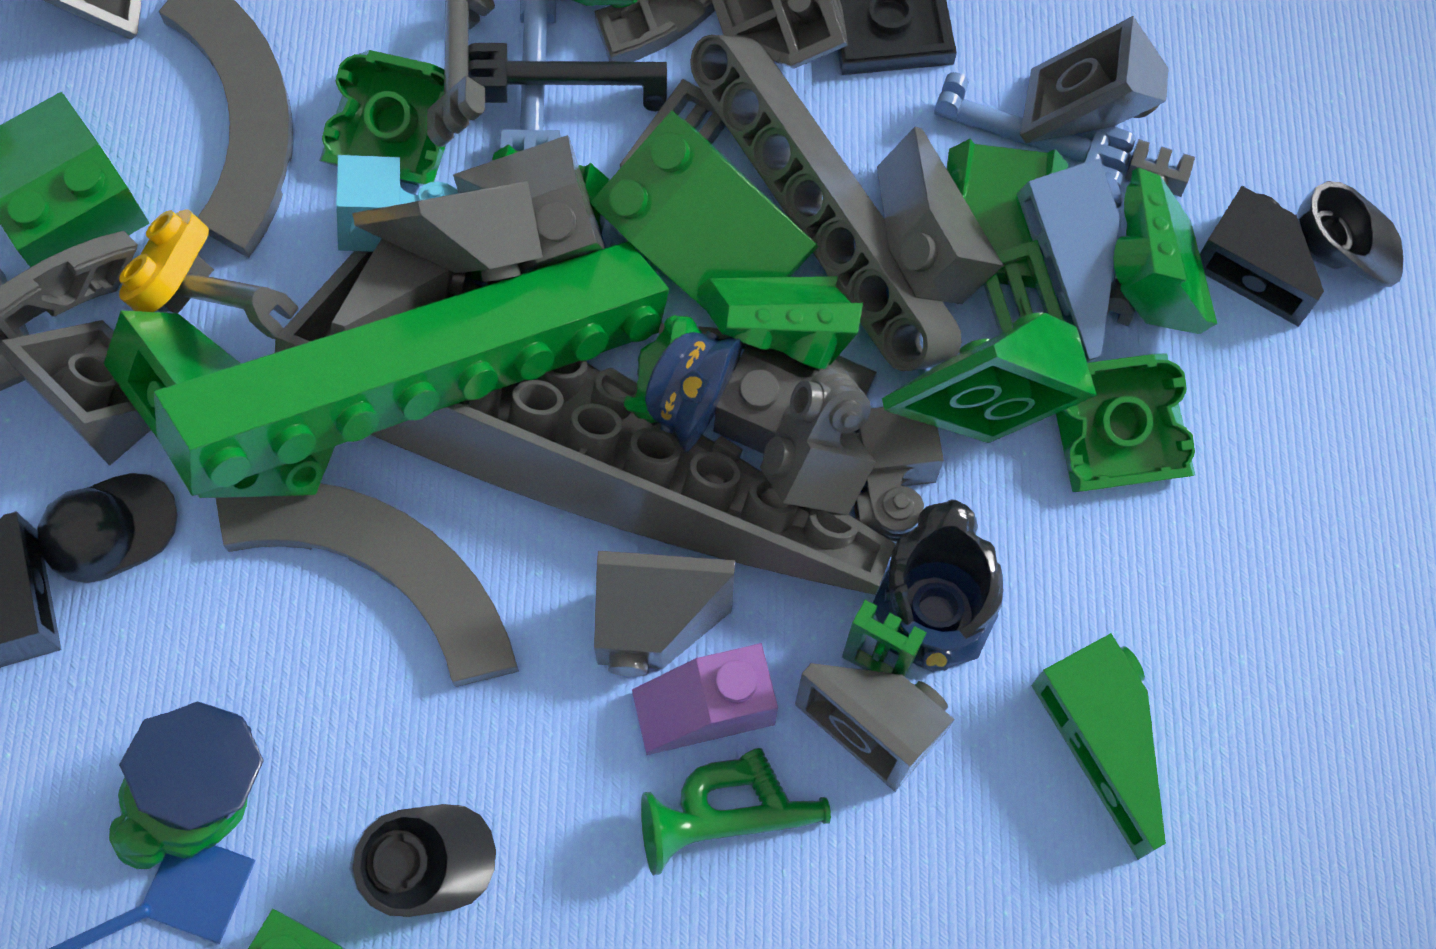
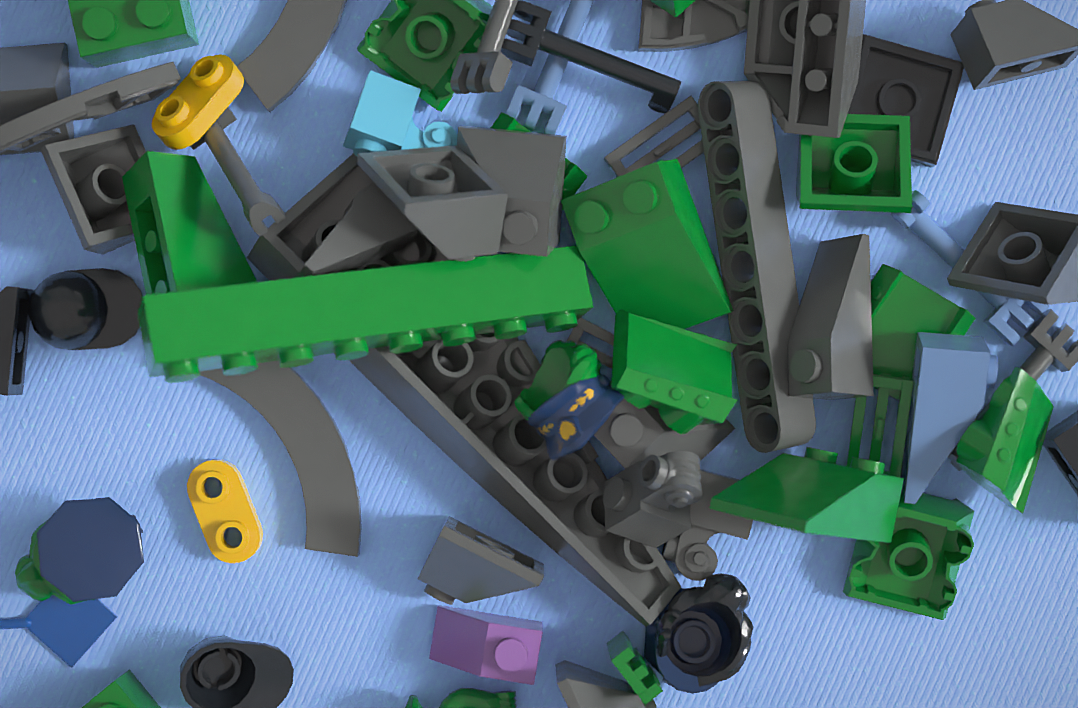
camera: 25 degrees right, 20 degrees up
(341, 679) = (227, 510): none -> yellow plate
(878, 73) = (860, 169): none -> green slope

